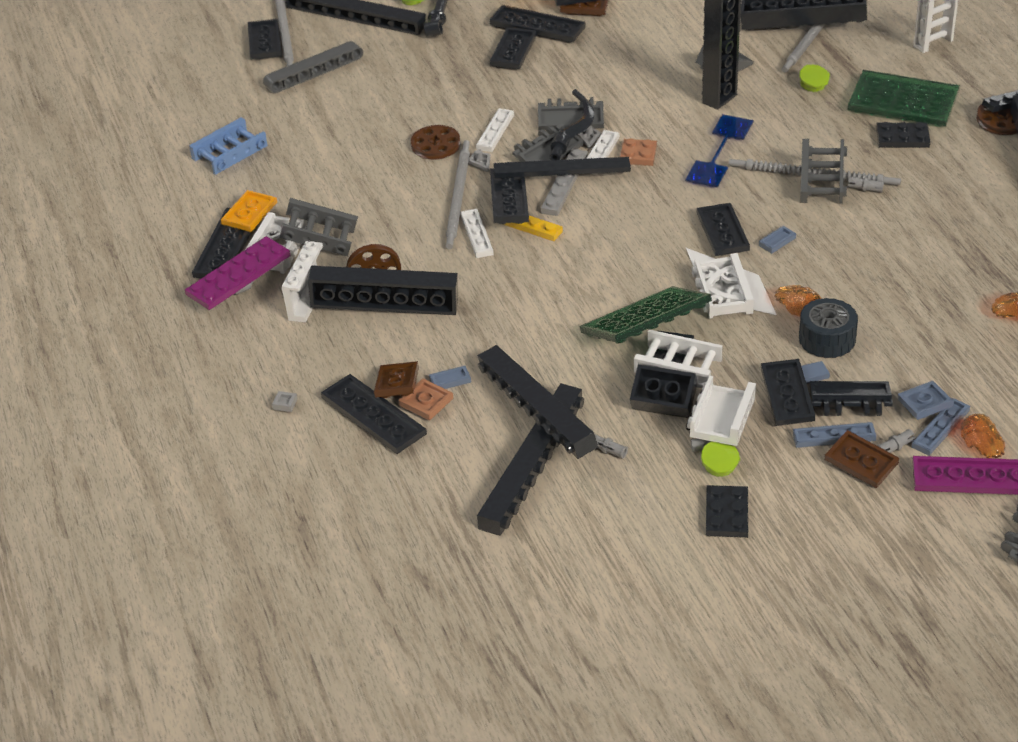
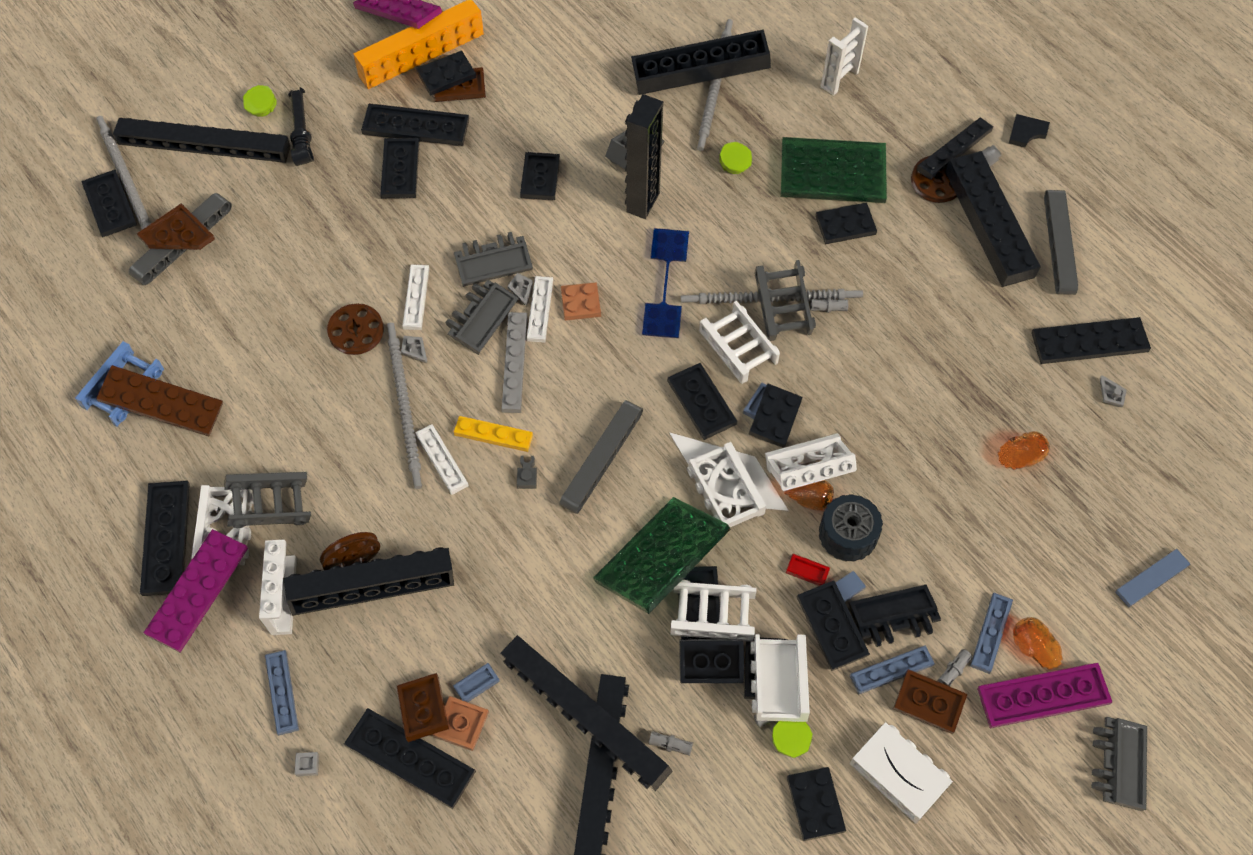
camera: 20 degrees left, 20 degrees up
(249, 211) = (177, 485): light orange tile -> none
(256, 158) = (160, 400): none -> reddish brown plate
(282, 355) = (281, 692): none -> sand blue tile
(311, 56) = (176, 231): none -> reddish brown plate
(509, 199) = (463, 402): black plate -> none
(547, 254) = (527, 475): none -> dark grey plate
(561, 167) = (508, 348): black tile -> none
(562, 138) = (505, 288): black animal -> none
(617, 250) = (601, 457): none -> dark grey beam
(633, 68) = (540, 176): none -> black plate
(760, 204) = (729, 355): none -> white fence
(774, 352) = (807, 570): none -> red tile
(787, 248) = (775, 415): none -> black plate
(806, 277) = (790, 474): none -> white fence
(814, 500) = (901, 772): none -> white panel
(925, 400) = (970, 605): sand blue plate -> none

